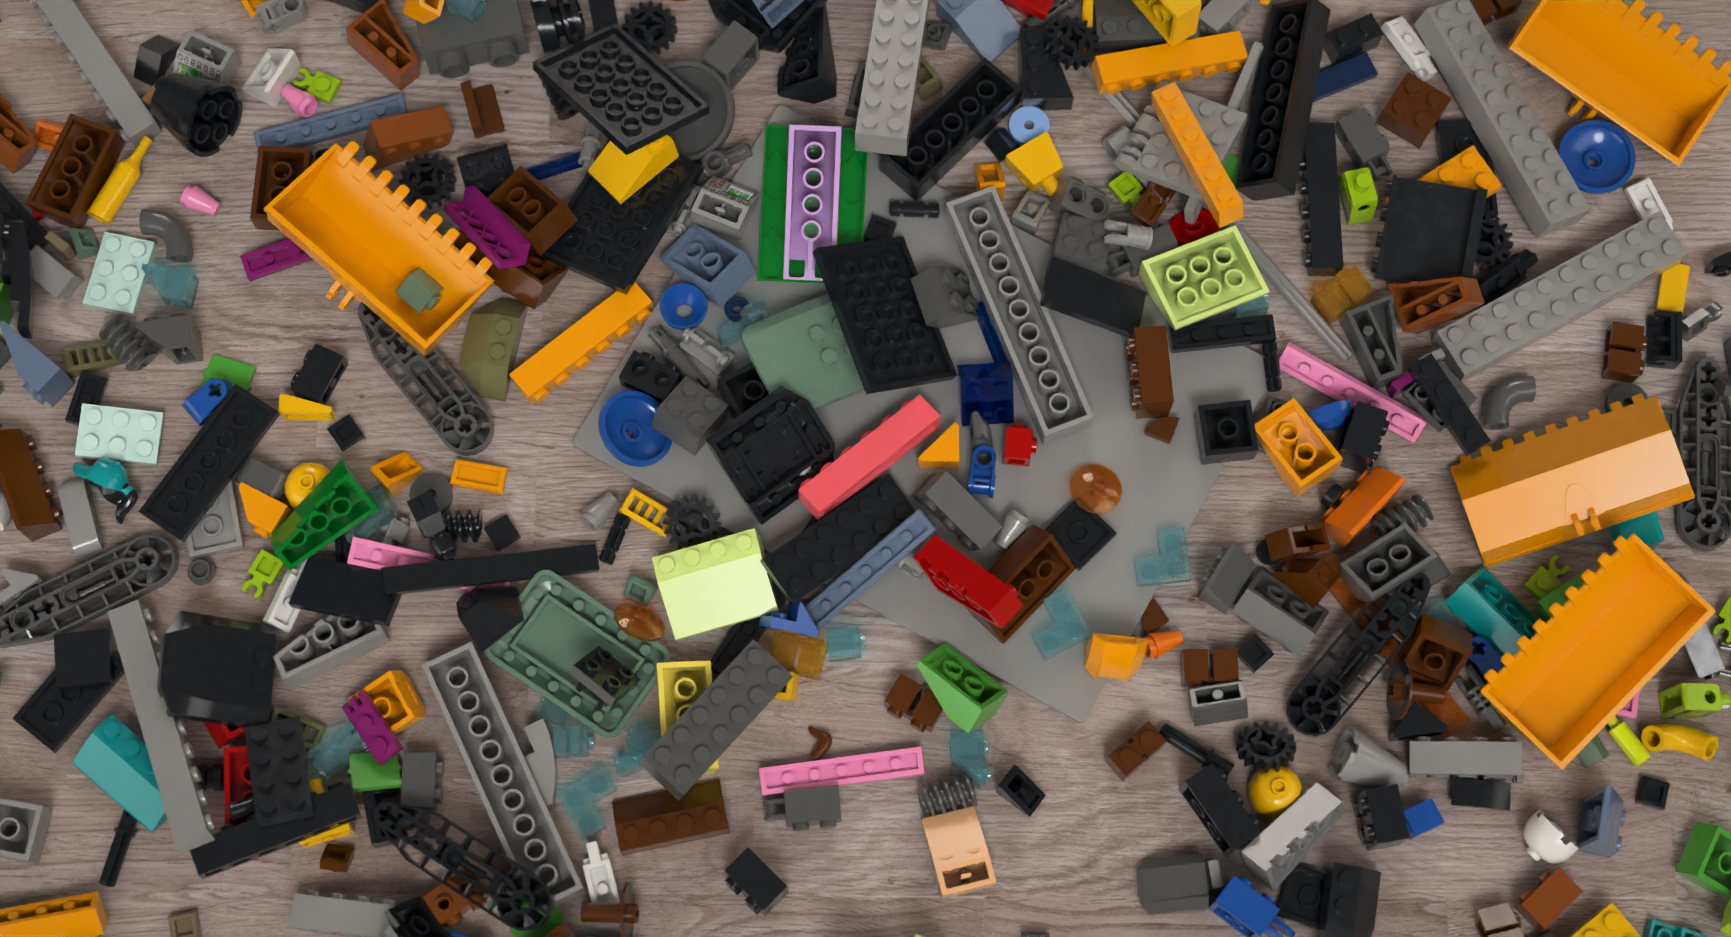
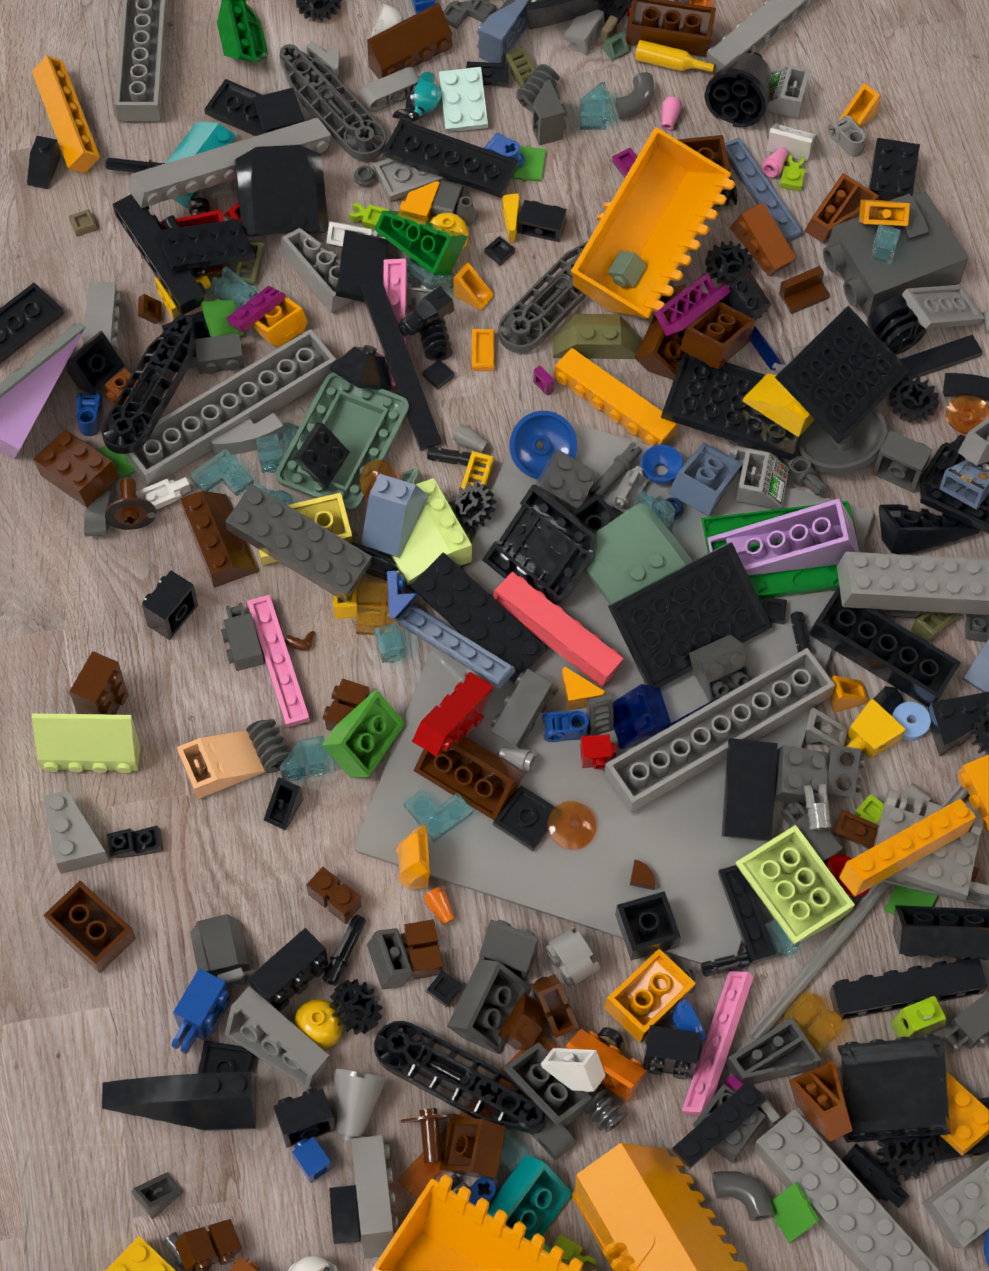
camera: 80 degrees right, 10 degrees down
(117, 274) = (586, 72): light aqua plate -> none
(154, 59) = (782, 56): black slope -> none
(286, 460) = (466, 210): none -> dark grey cone
(435, 483) = (465, 326): dark grey piece -> none
(539, 415) = (543, 380): none -> magenta tile
(647, 382) = (589, 451): black brick -> none
(693, 612) = (391, 514): none -> sand blue slope
(1149, 372) = (689, 848): reddish brown brick -> none
(1153, 617) = (462, 896): reddish brown tile -> none
(1170, 566) = (513, 900): clear light blue plate -> none
(1244, 514) = (573, 956): none -> light grey brick
(1377, 531) = (575, 1068): none -> white slope
(1417, 723) = (402, 1143): black slope -> none
(1535, 356) = (794, 1212): none -> bright green piece

